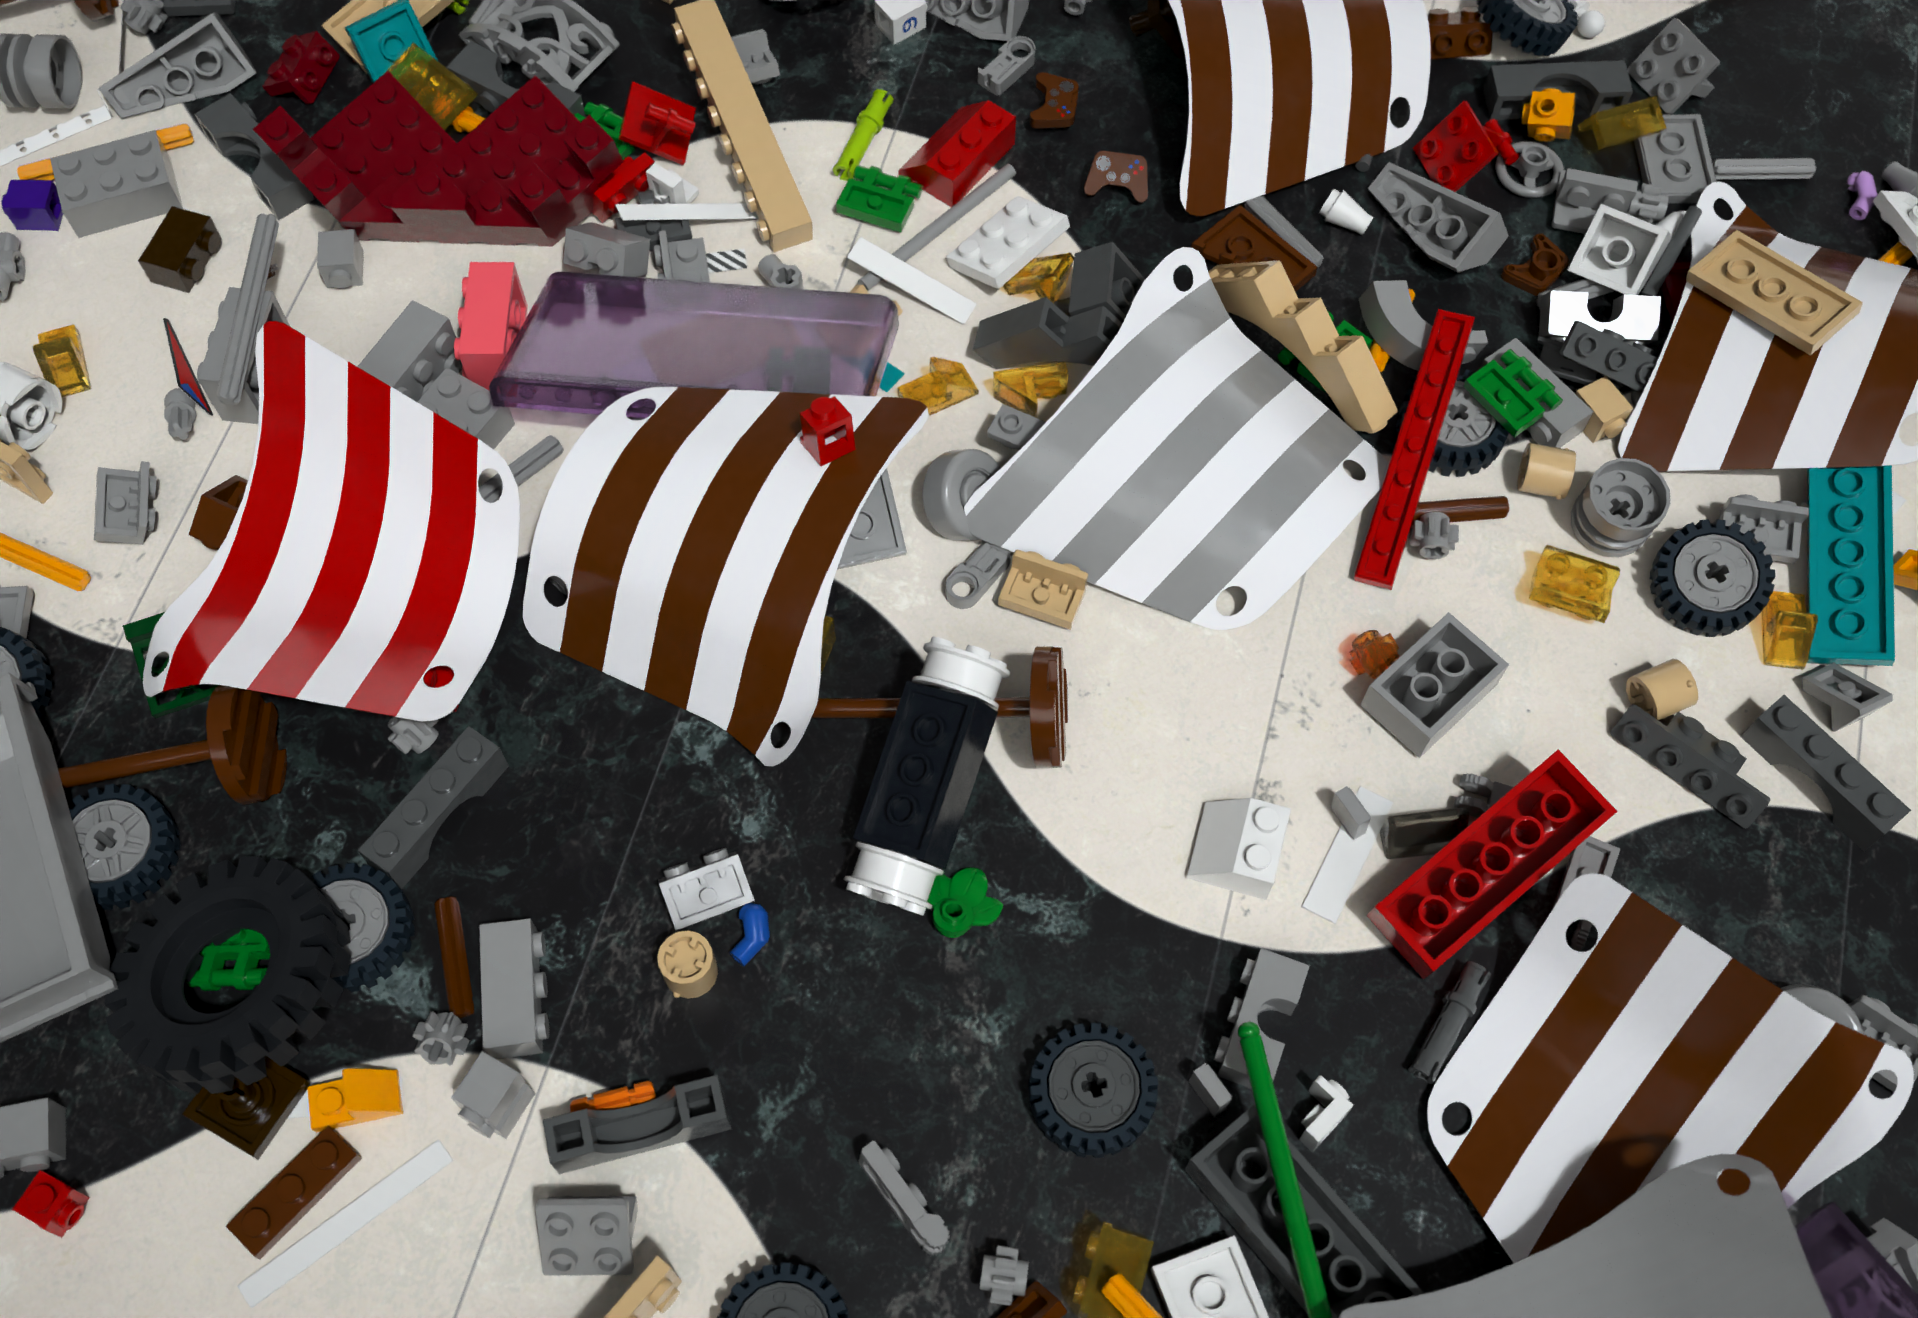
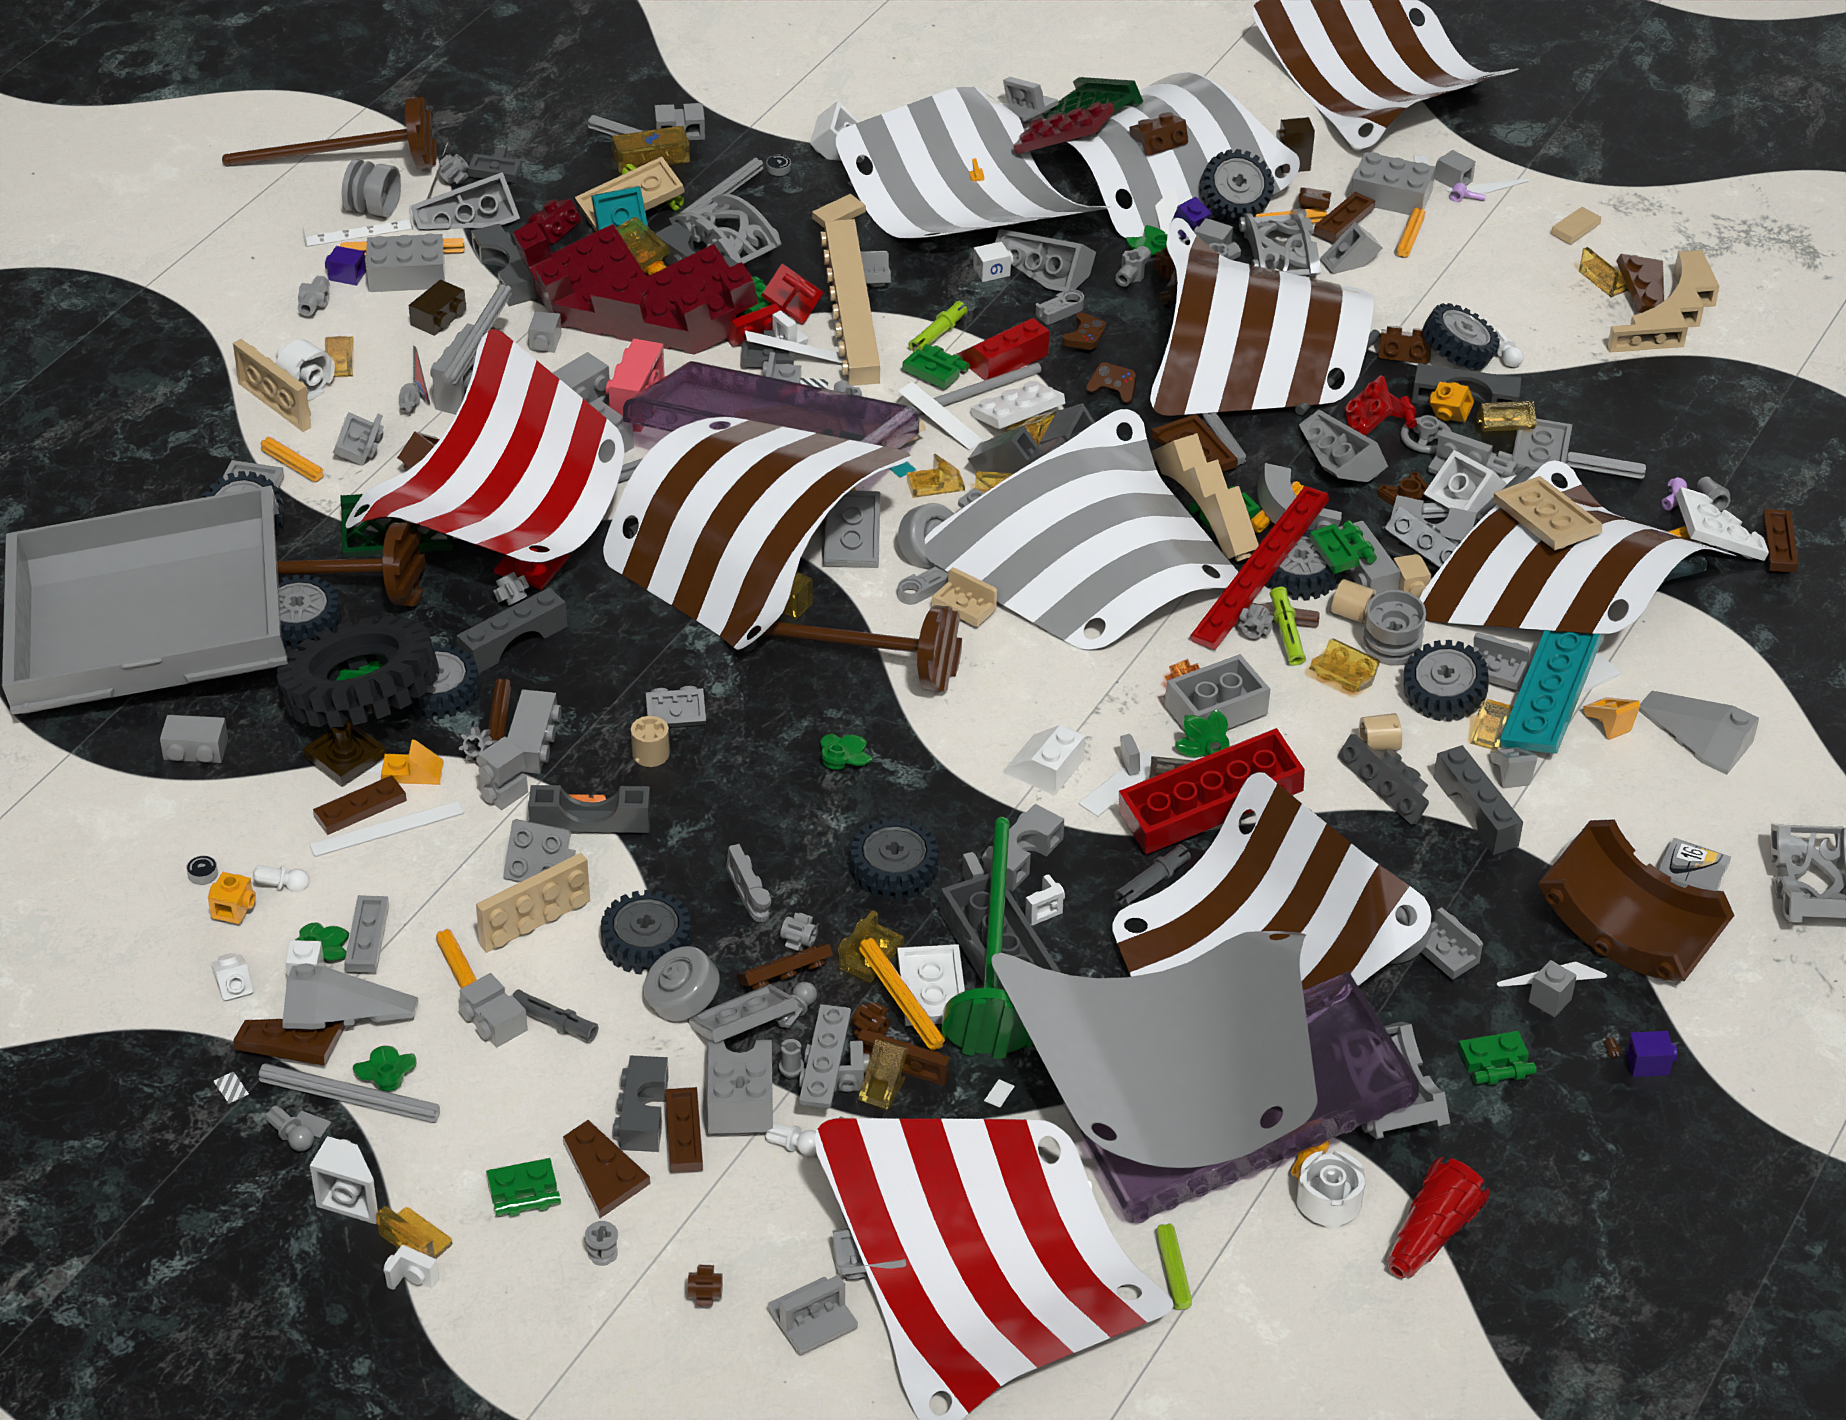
camera: 15 degrees right, 20 degrees down
(51, 1204) = (208, 778): red bracket -> none
(607, 248) = (729, 355): light grey brick -> none
(755, 933) = (700, 740): blue arm -> none
(822, 420) = (836, 445): red brick -> none
(926, 775) = (841, 662): black brick -> none
(1345, 212) = (1272, 432): white cone -> none
(1441, 758) = (1202, 733): none -> green plate
(1480, 538) = (1280, 600): none -> lime pin
(1674, 67) = (1561, 391): light grey bracket -> none

